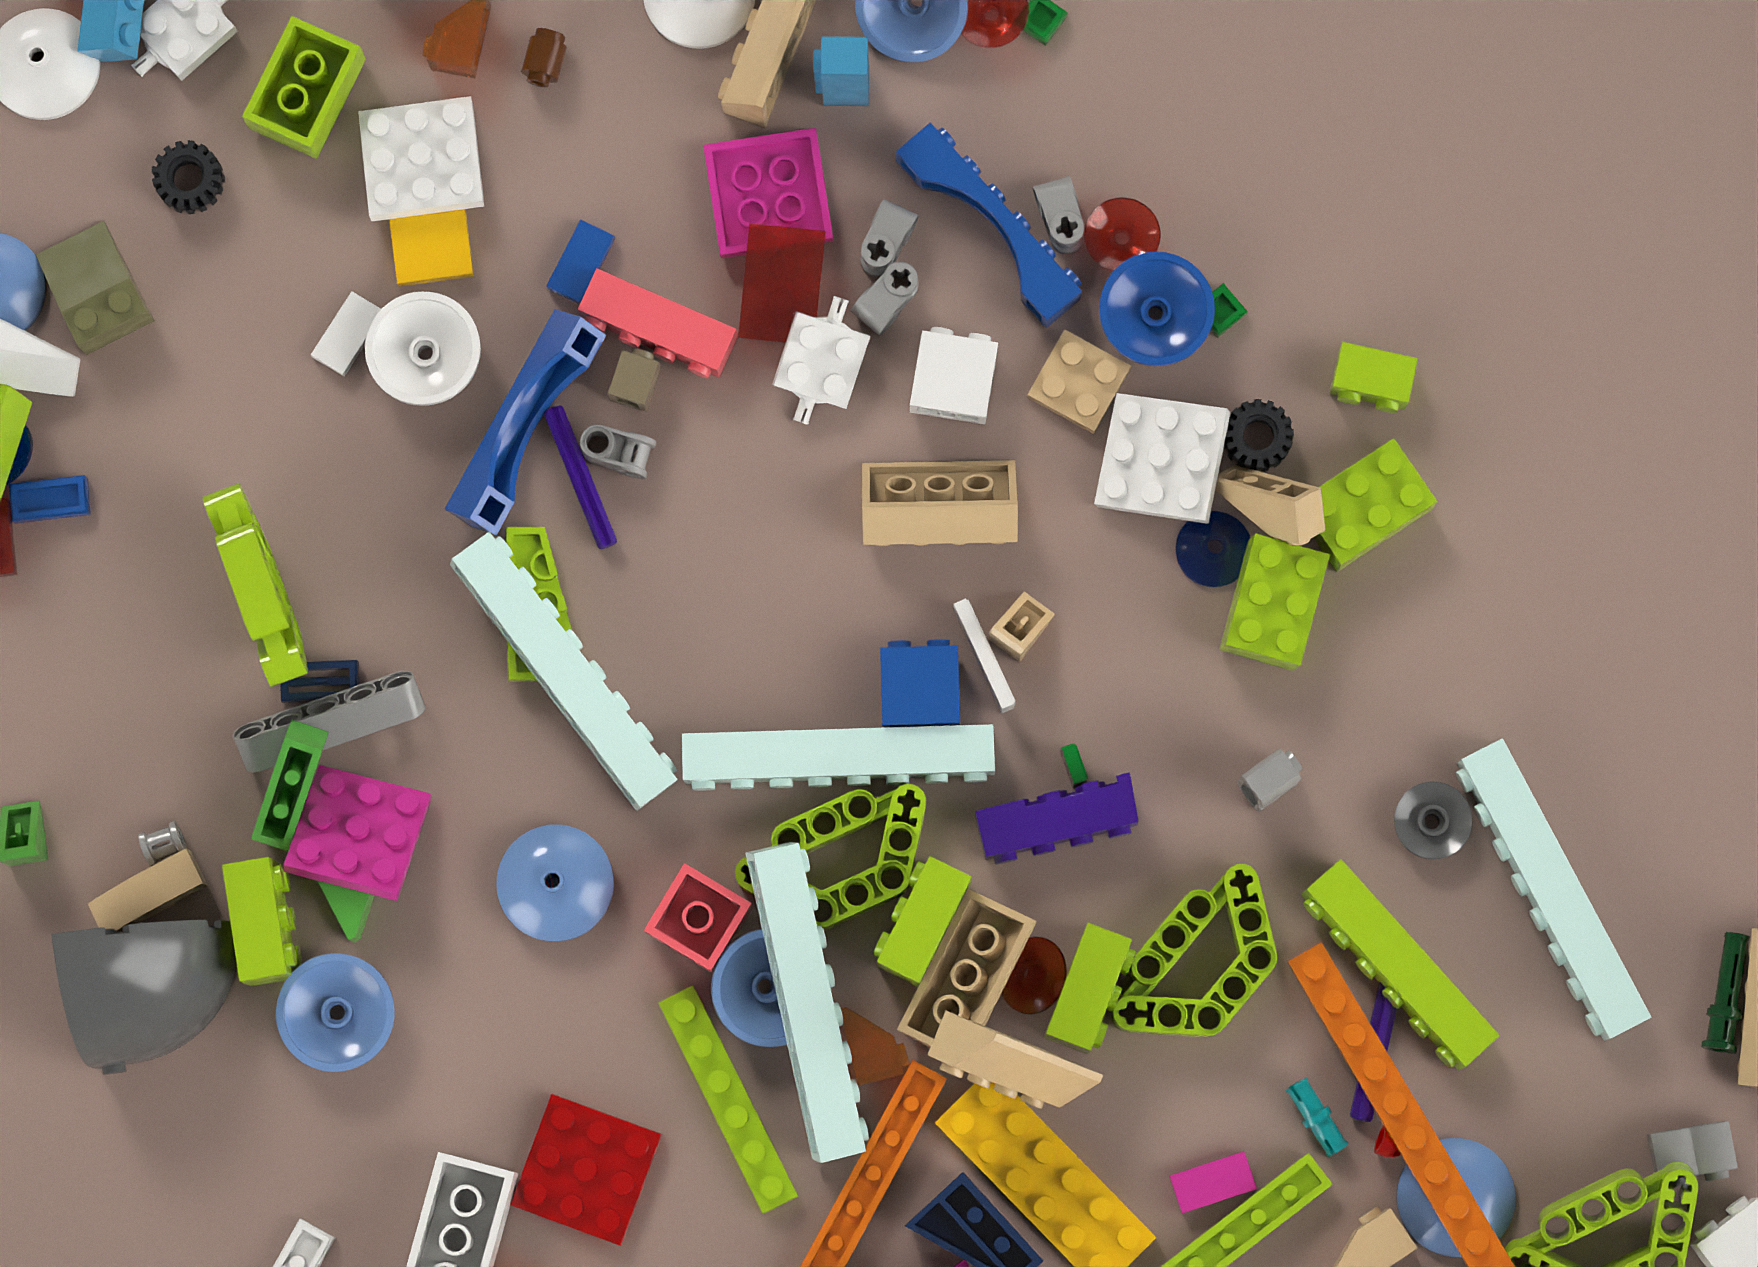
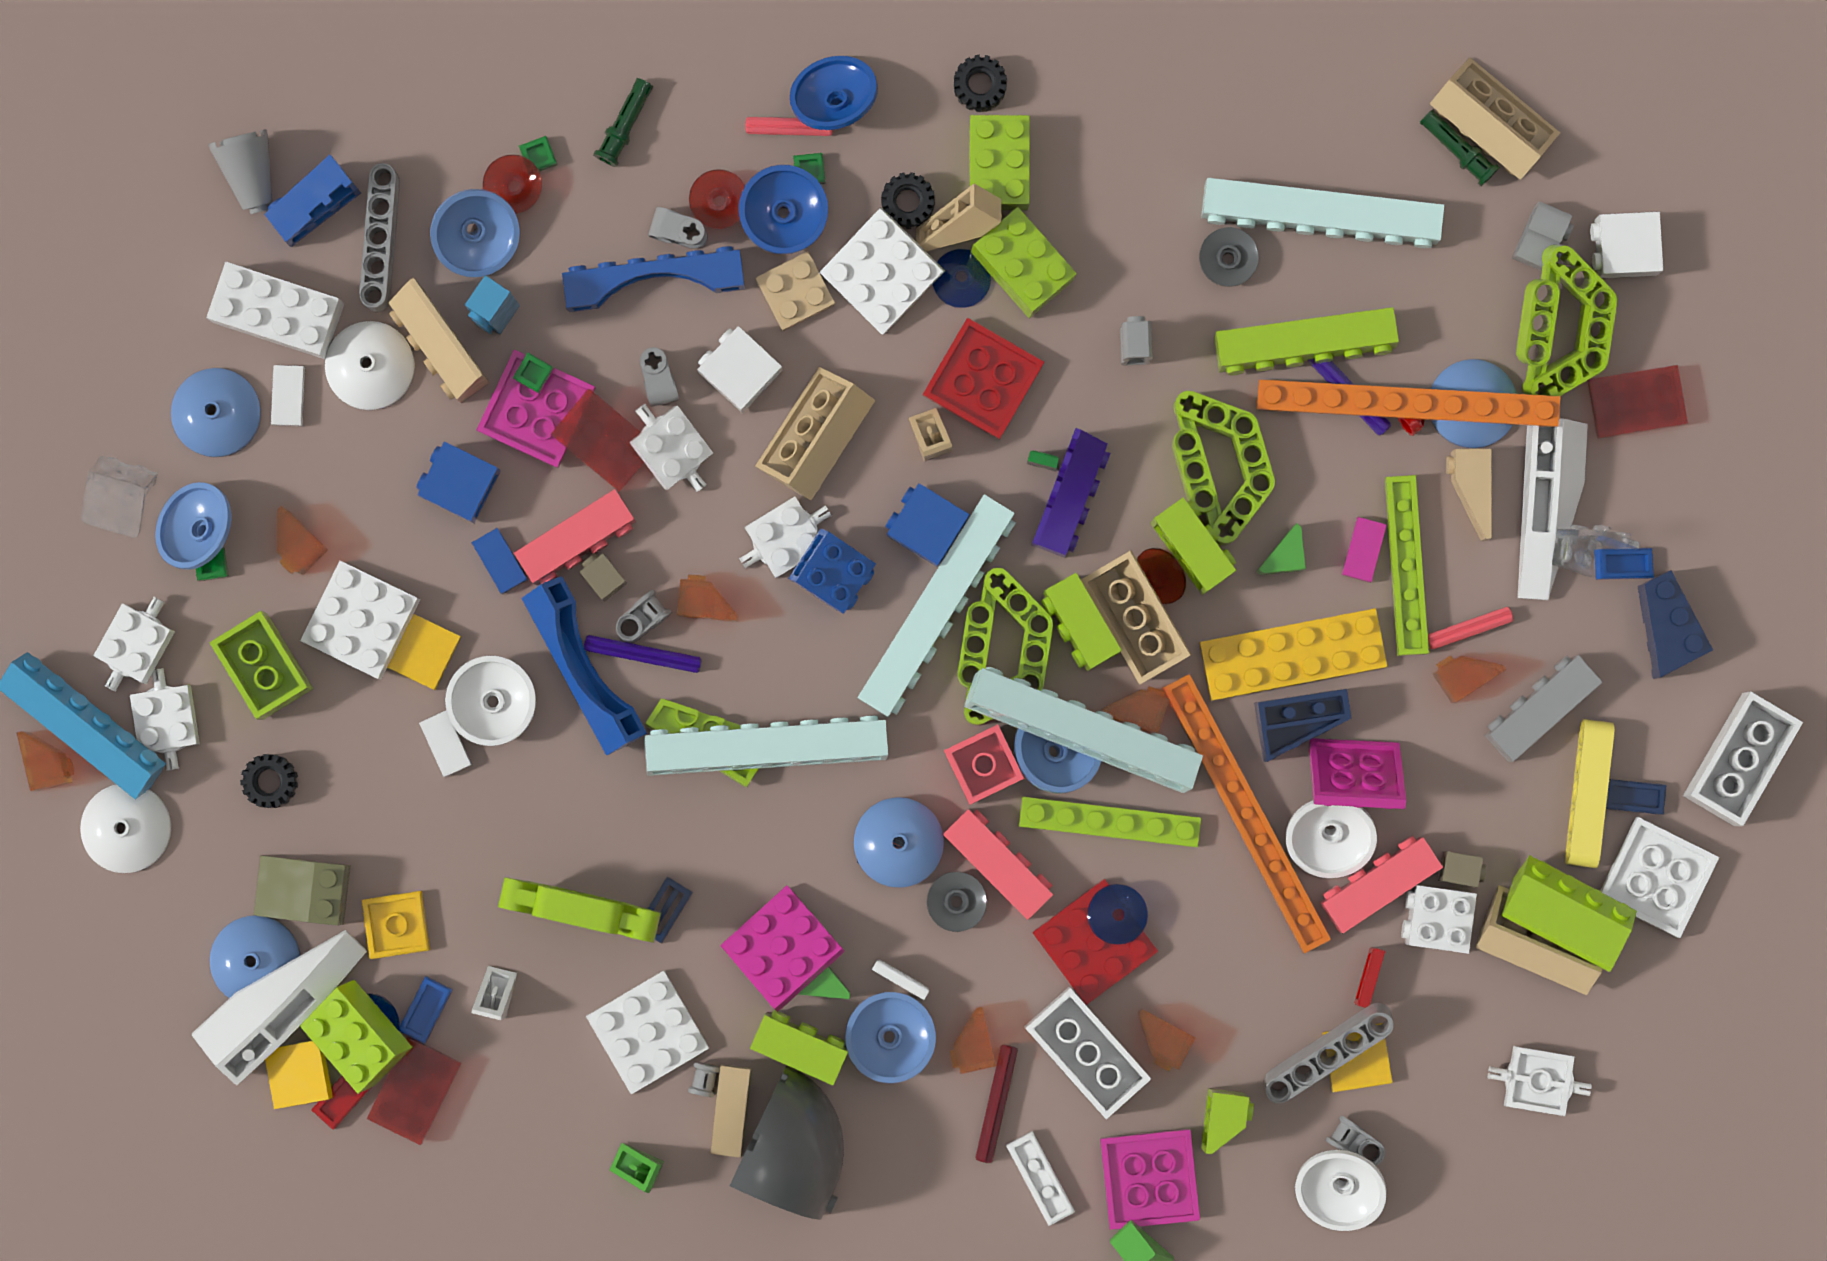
camera: 60 degrees left, 5 degrees up
(111, 560) = (495, 993): none -> white slope
(120, 409) = (395, 924): none -> yellow tile
(174, 750) = (647, 1032): none -> white plate
(289, 785) = (724, 972): bright green brick -> none
(339, 1178) = (996, 1103): none -> dark red axle
(342, 714) = (696, 920): light grey beam -> none
(386, 1110) = (973, 1045): none -> clear orange slope
(407, 983) = (901, 979): none -> white tile
(510, 986) = (956, 918): none -> dark grey dish
(544, 57) = (346, 495): reddish brown brick -> none
(602, 1005) = (998, 864): none -> coral brick
(634, 162) = (457, 481): none -> blue brick
(651, 1179) = (1101, 914): none -> clear blue dish
(679, 502) = (703, 601): none -> clear orange slope
(801, 619) = (833, 571): none -> blue brick
(803, 163) = (533, 373): none -> green tile
(806, 544) = (783, 536): none -> white plate
(888, 233) = (616, 348): light grey piece -> none
(984, 655) = (934, 470): white tile -> none
(1008, 1063) = (1209, 627): tan slope -> none
(1120, 643) = (983, 378): none -> red plate
(1122, 85) = (618, 134): none -> dark green pin
(1146, 1099) = (1287, 555): none -> bright green slope
(1252, 258) = (781, 126): none -> coral axle
(1317, 1117) = (1366, 456): teal pin -> none
(1318, 279) = (833, 92): none -> blue dish
(1373, 377) = (919, 101): lime brick -> none
(1446, 407) = (980, 65): none -> black tyre

